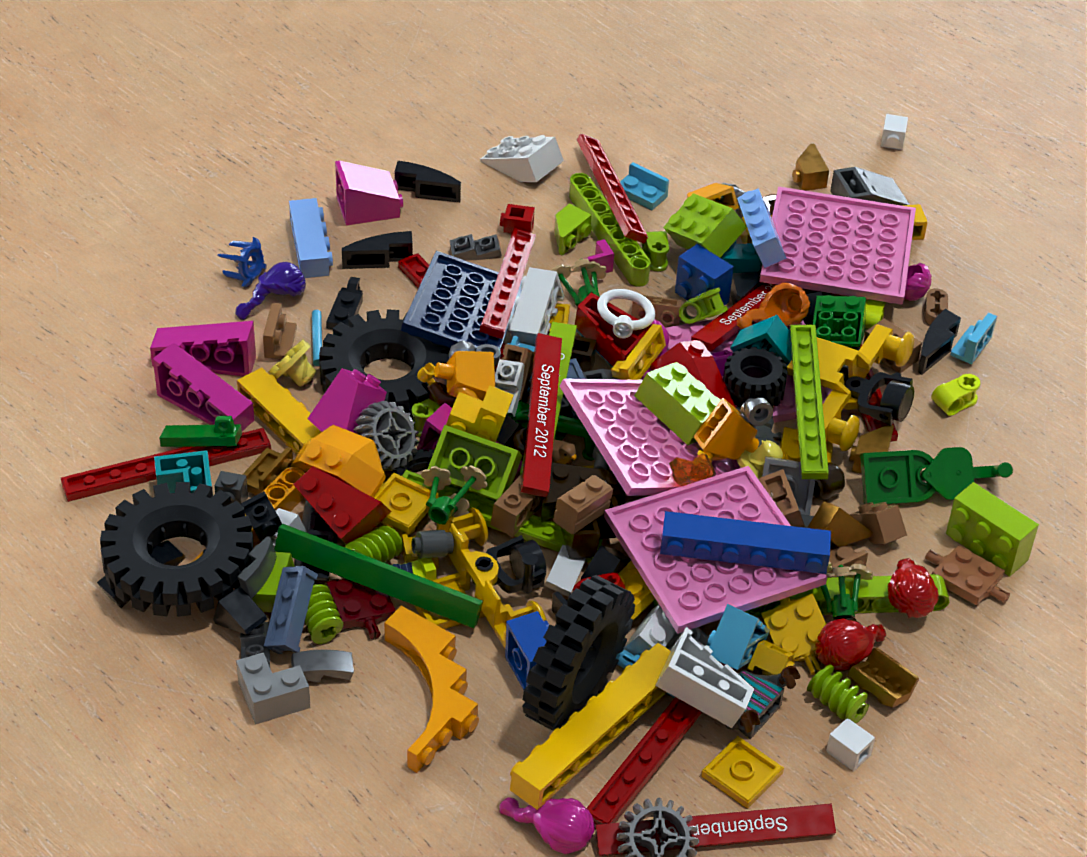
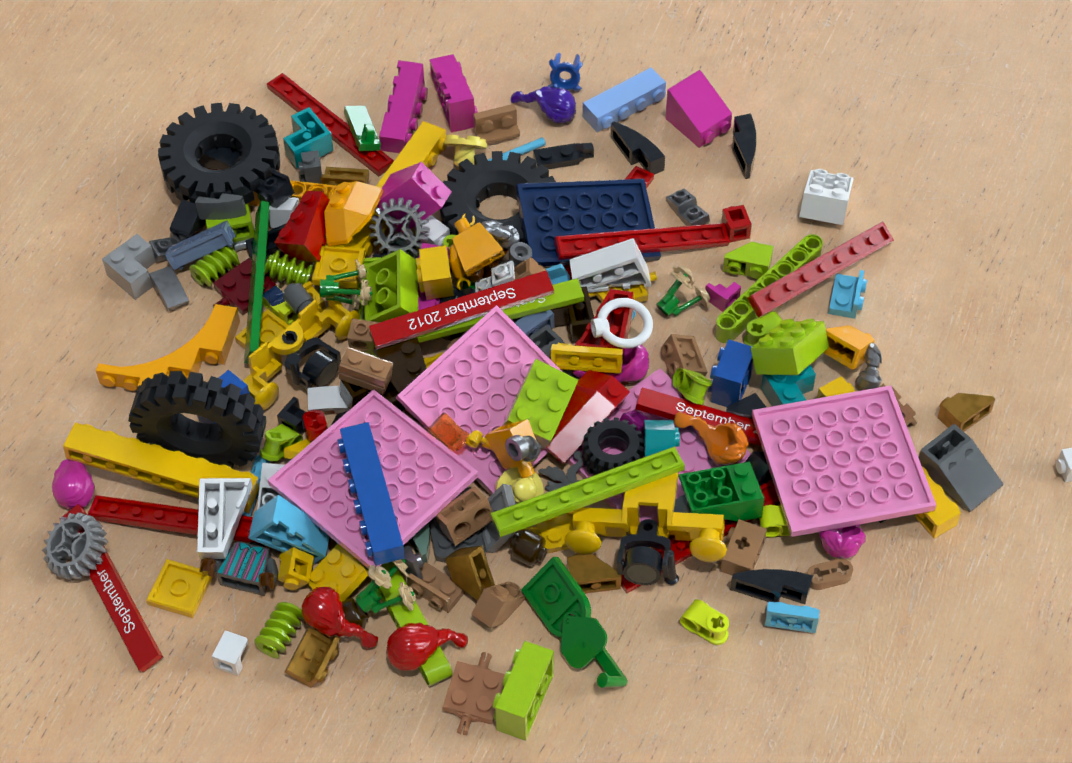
camera: 70 degrees right, 10 degrees up
(761, 228) = (807, 386): light blue brick -> none

